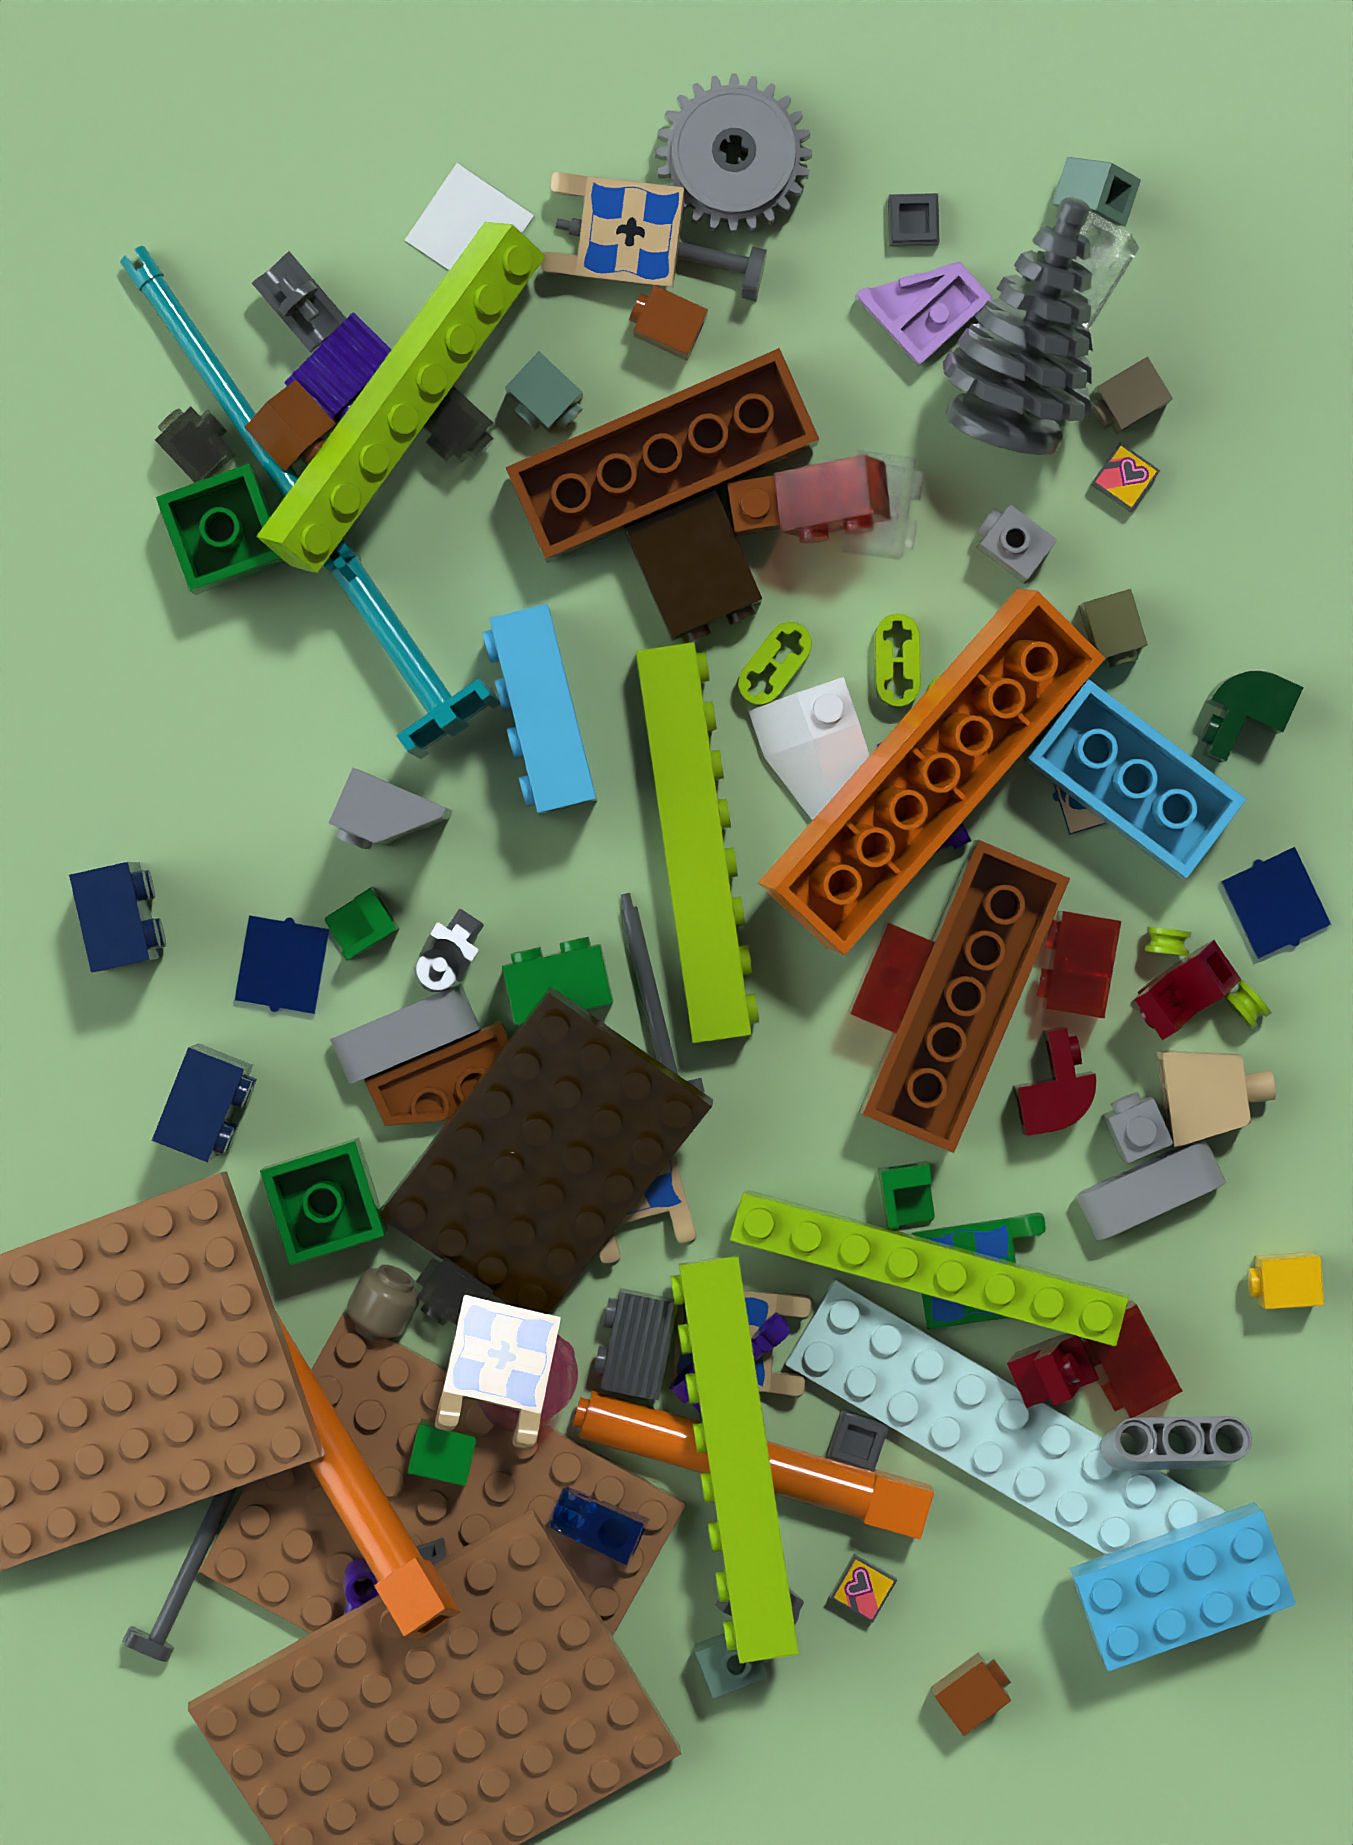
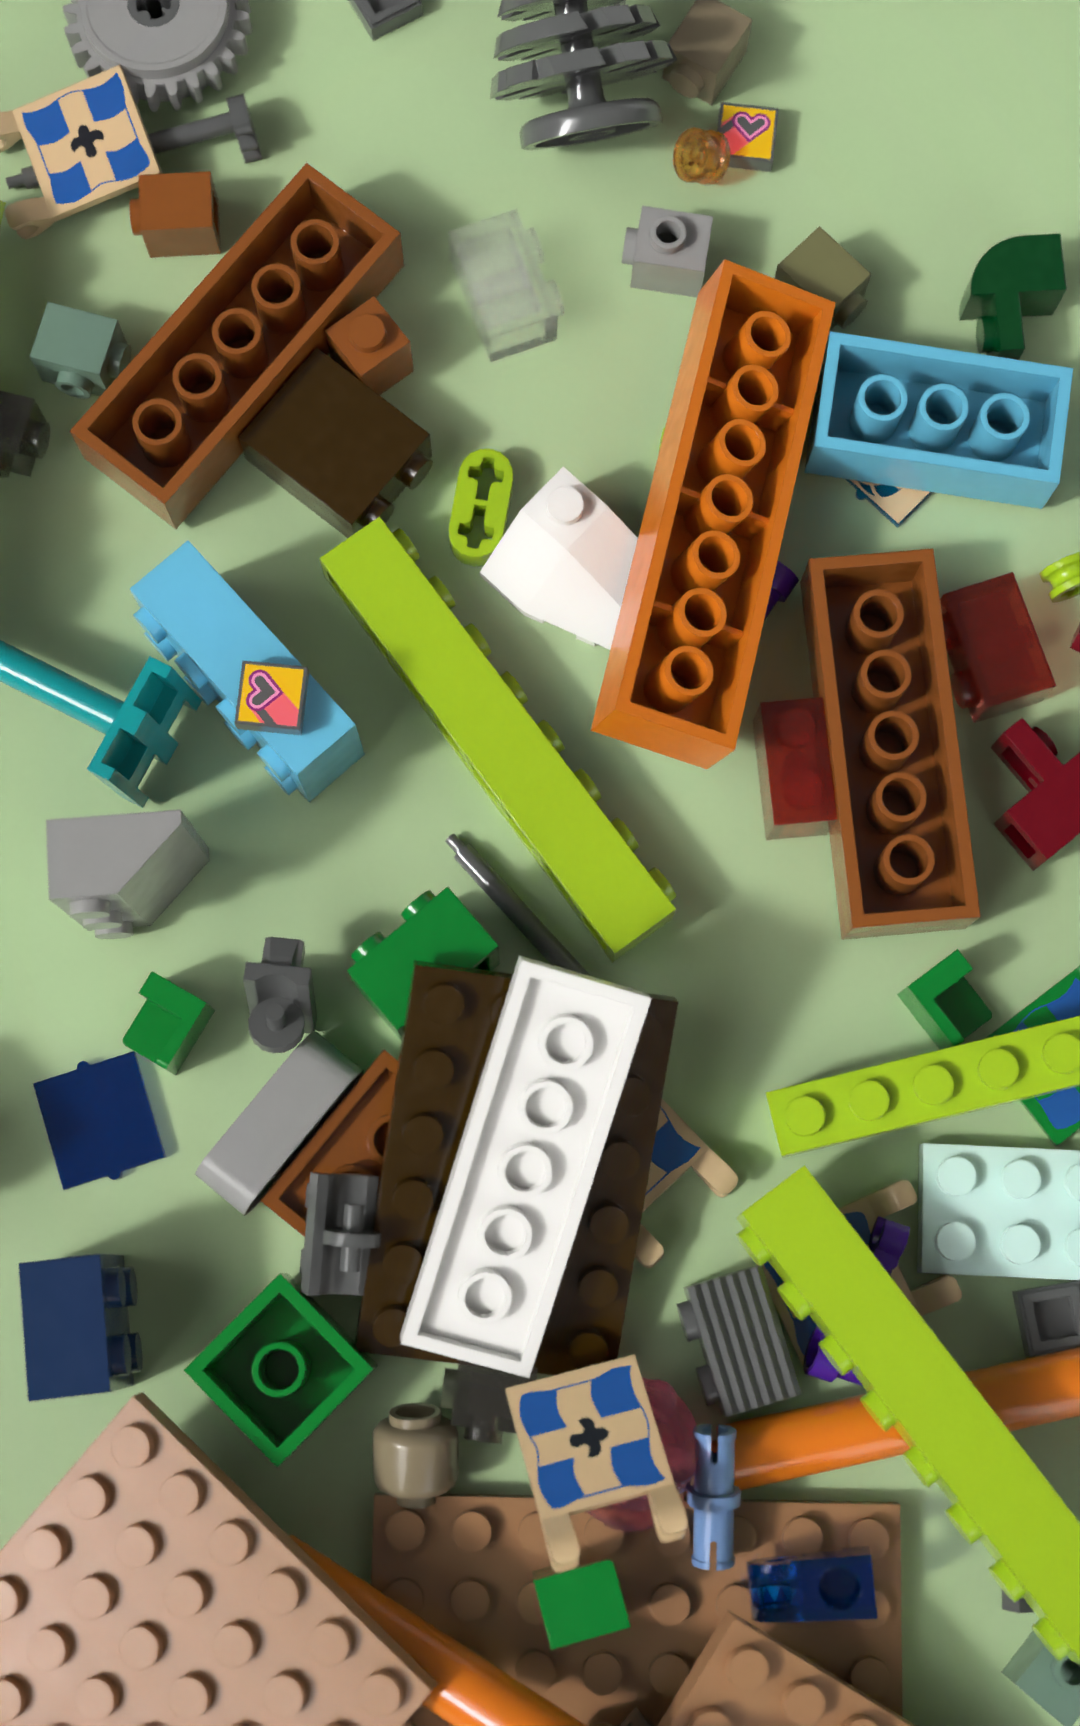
camera: 30 degrees left, 10 degrees down
(406, 1134) = (338, 1233): none -> dark grey hips
(547, 752) = (272, 698): none -> tile
(552, 1161) = (524, 1167): none -> white plate
(564, 1435) = (714, 1498): none -> medium blue pin
(832, 498) = (447, 284): clear red brick -> none
(910, 660) = (623, 430): lime beam -> none
(925, 307) = (441, 73): lavender wing -> none
(1080, 479) = (714, 160): none -> clear orange bush

